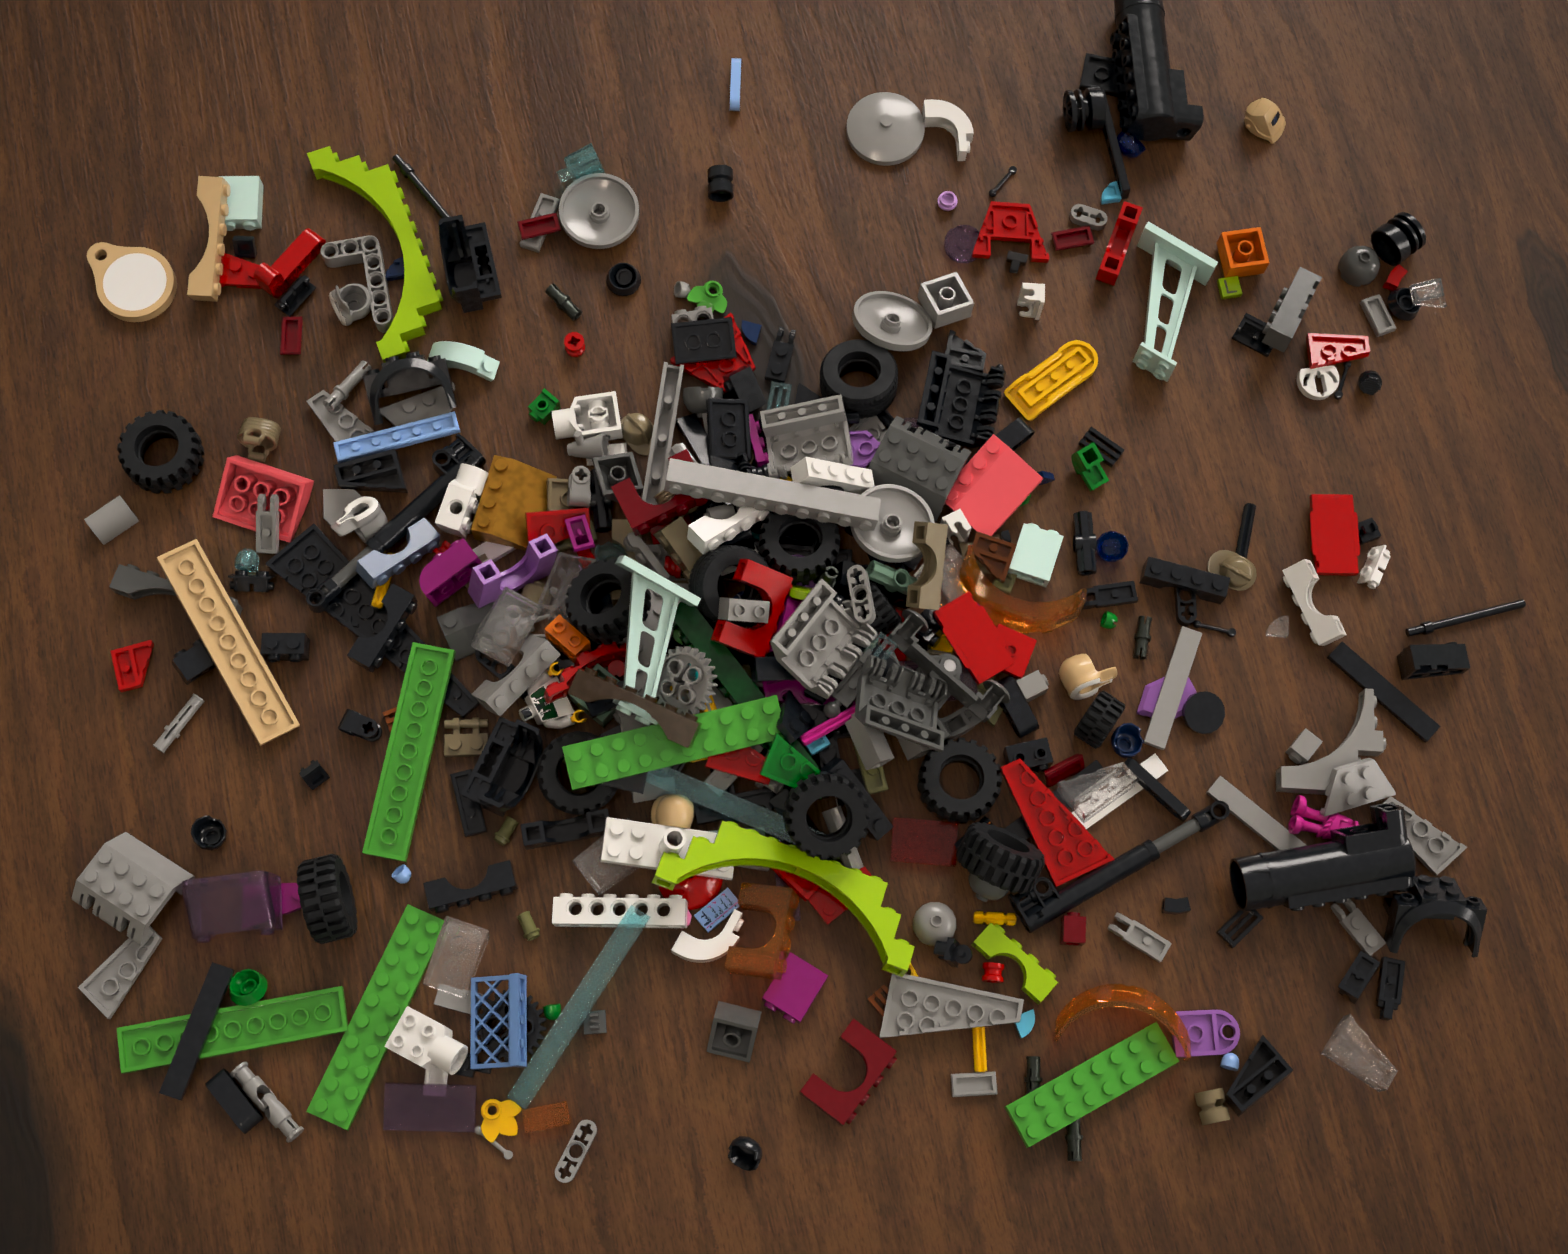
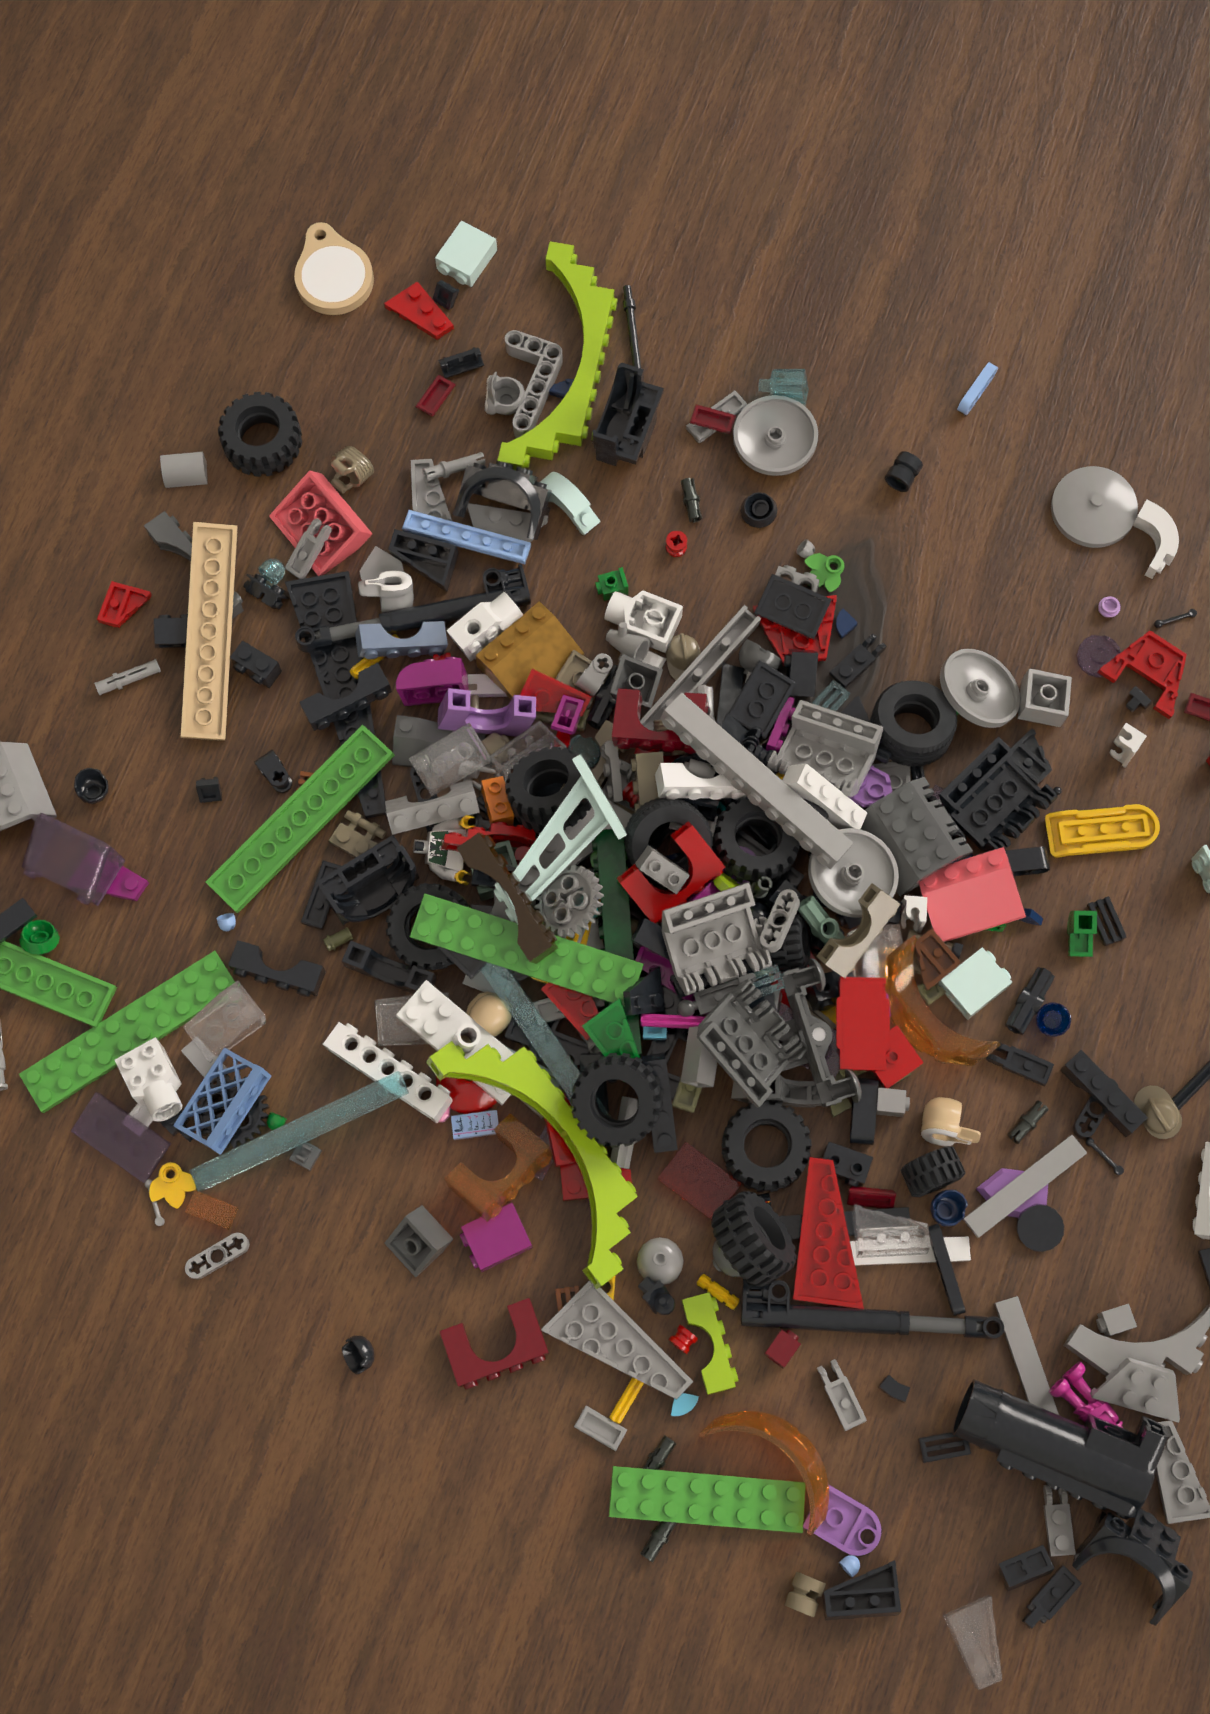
camera: 40 degrees right, 0 degrees up
(204, 279) = (393, 303): tan arch -> none
(290, 264) = (473, 332): red beam -> none
(327, 899) = (146, 902): black tyre -> none
(528, 926) = (303, 1034): olive pin -> none
(708, 950) = (446, 1155): white arch -> none
(1108, 619) = (1006, 1086): green hinge -> none
(1279, 627) = (1168, 1194): clear tile -> none

